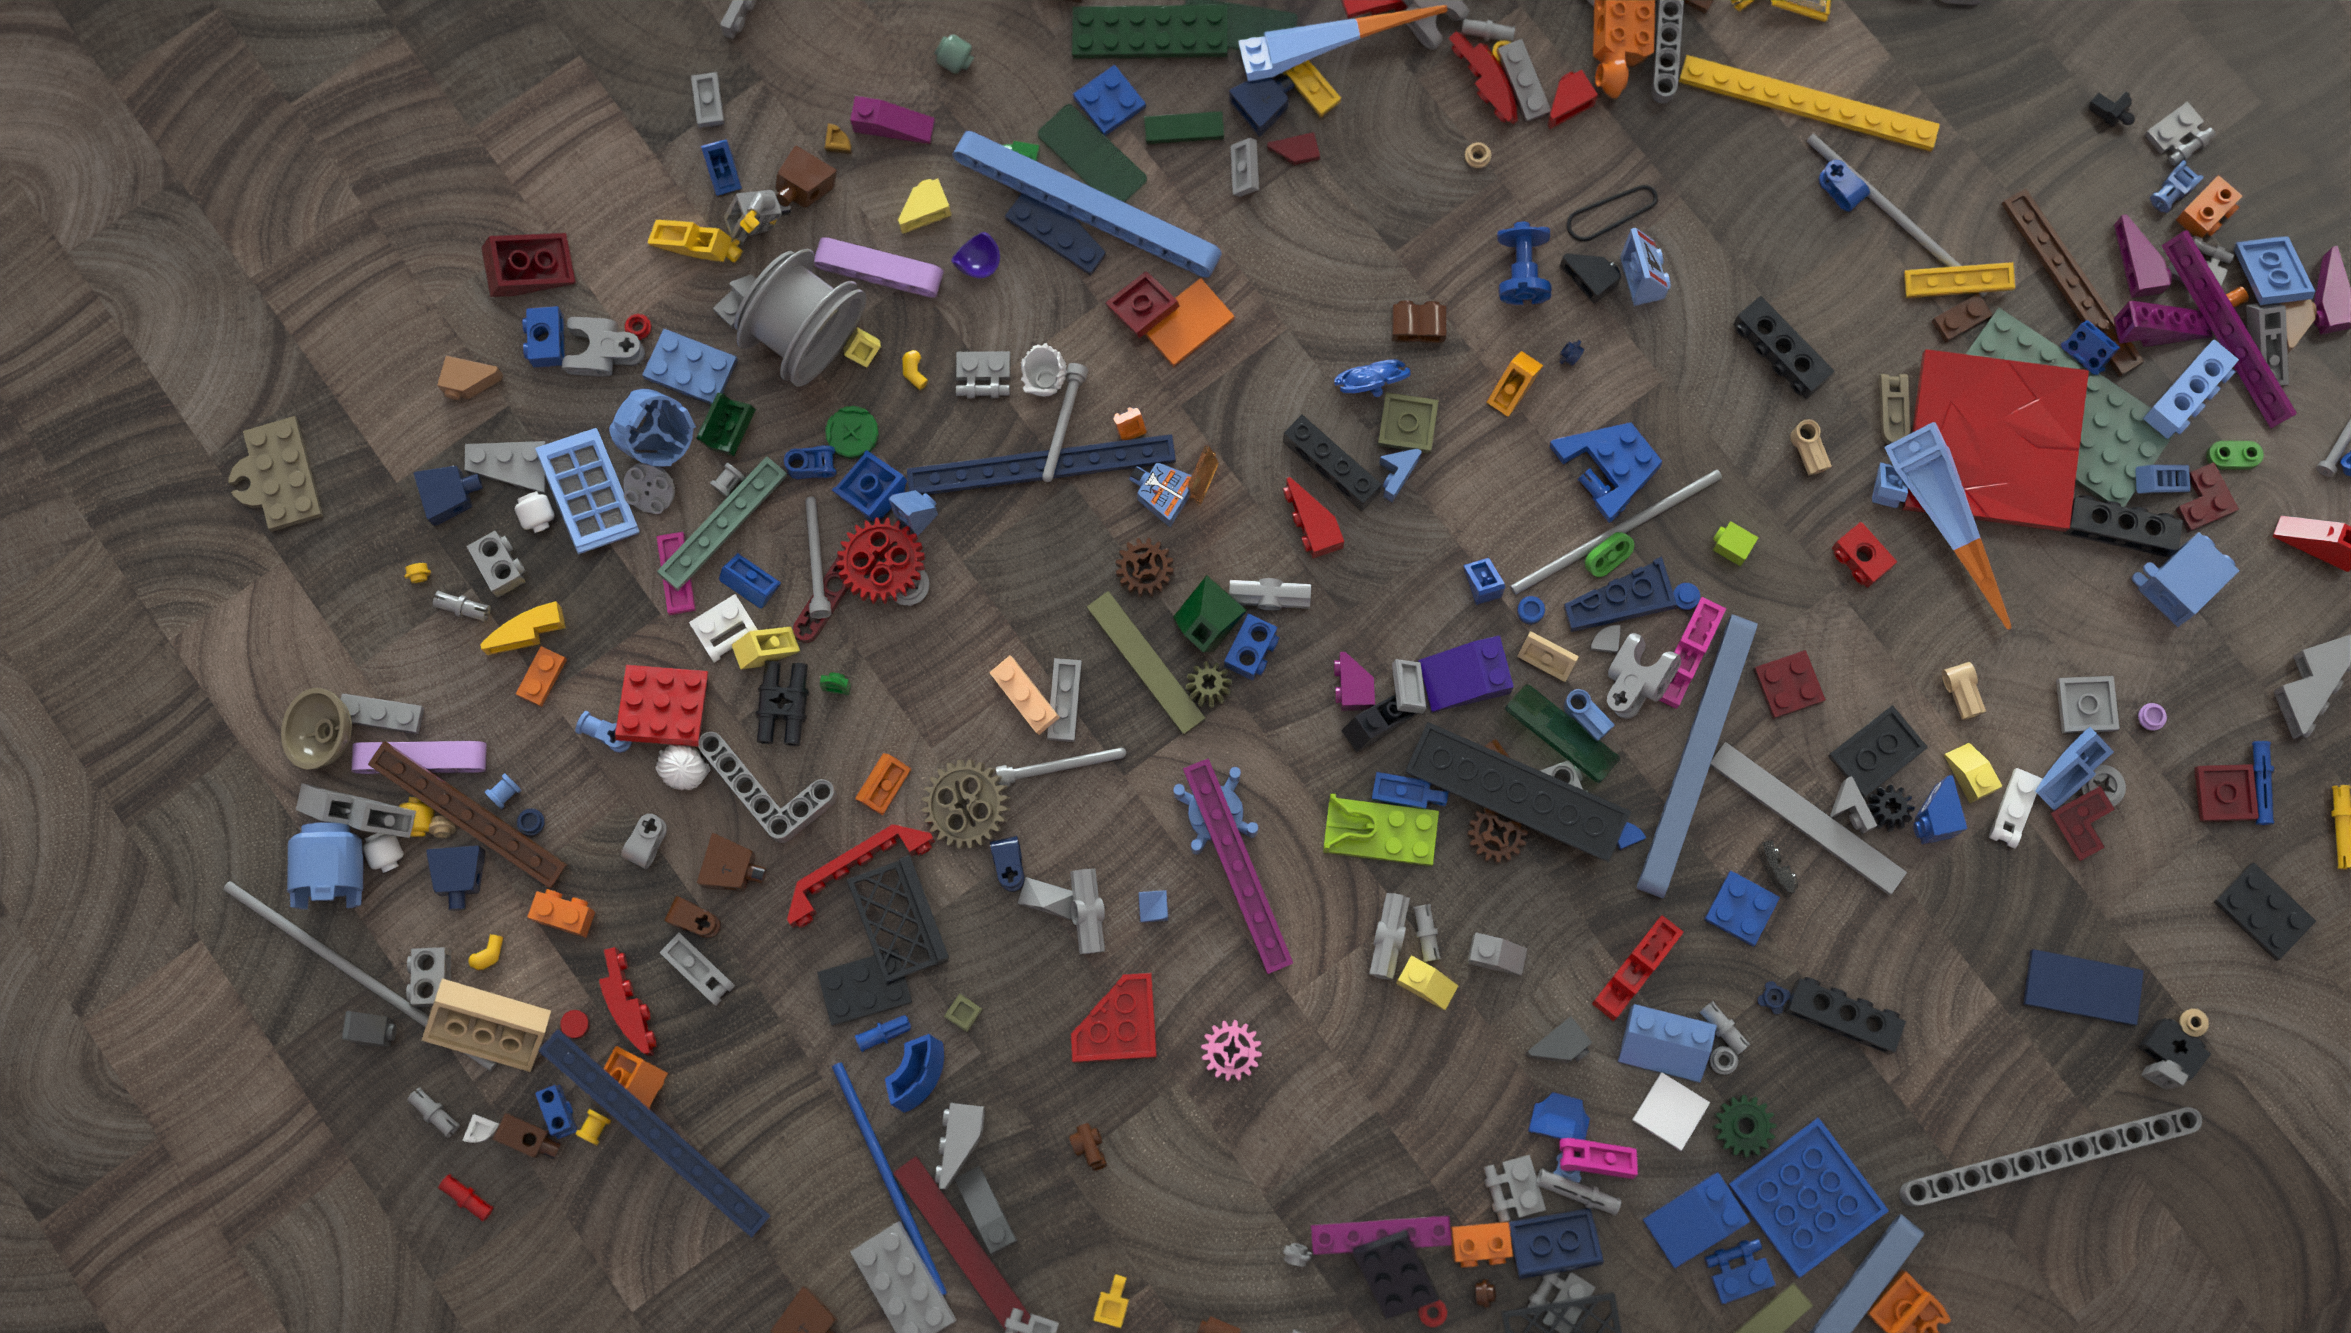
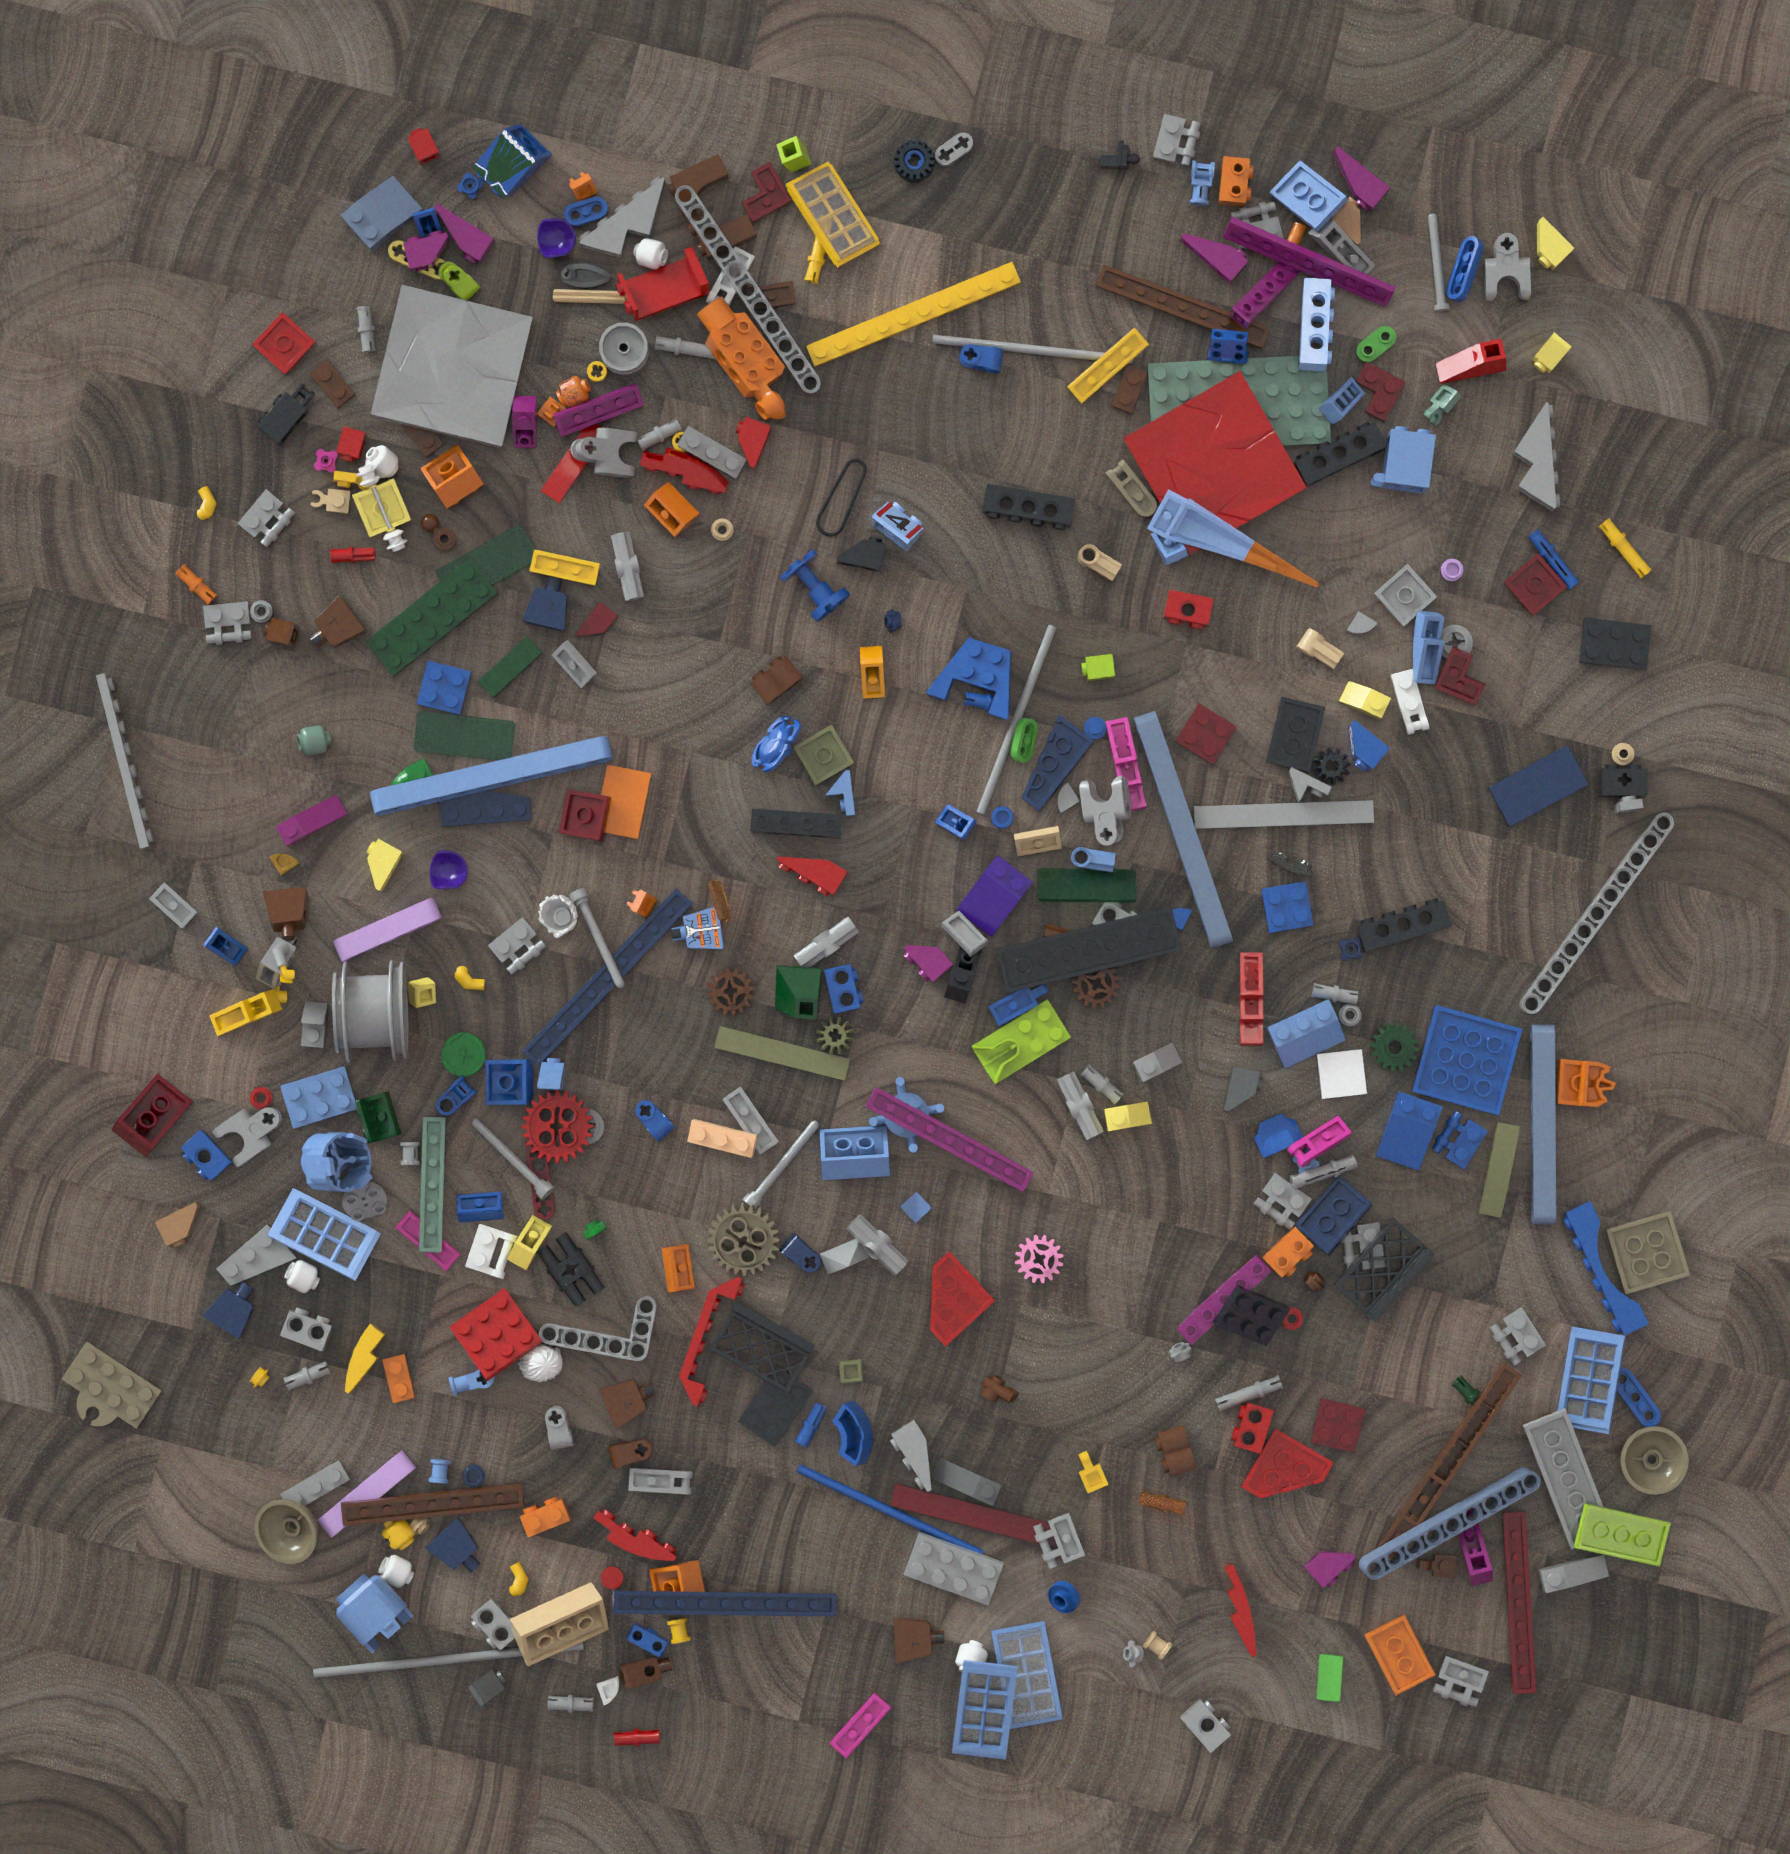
camera: 40 degrees left, 10 degrees up
(355, 811) = (357, 1562): light grey slope -> none
(975, 631) = (656, 1123): none -> blue piece
(1136, 808) = (854, 1152): none -> medium blue slope
(1289, 47) = (538, 557): light blue plate -> none
(1364, 120) = (627, 566): none -> light grey piece
(1446, 99) = (671, 509): none -> orange brick
(2022, 699) = (1361, 624): none -> light grey tile
(2263, 553) = (1442, 401): none -> sand green plate

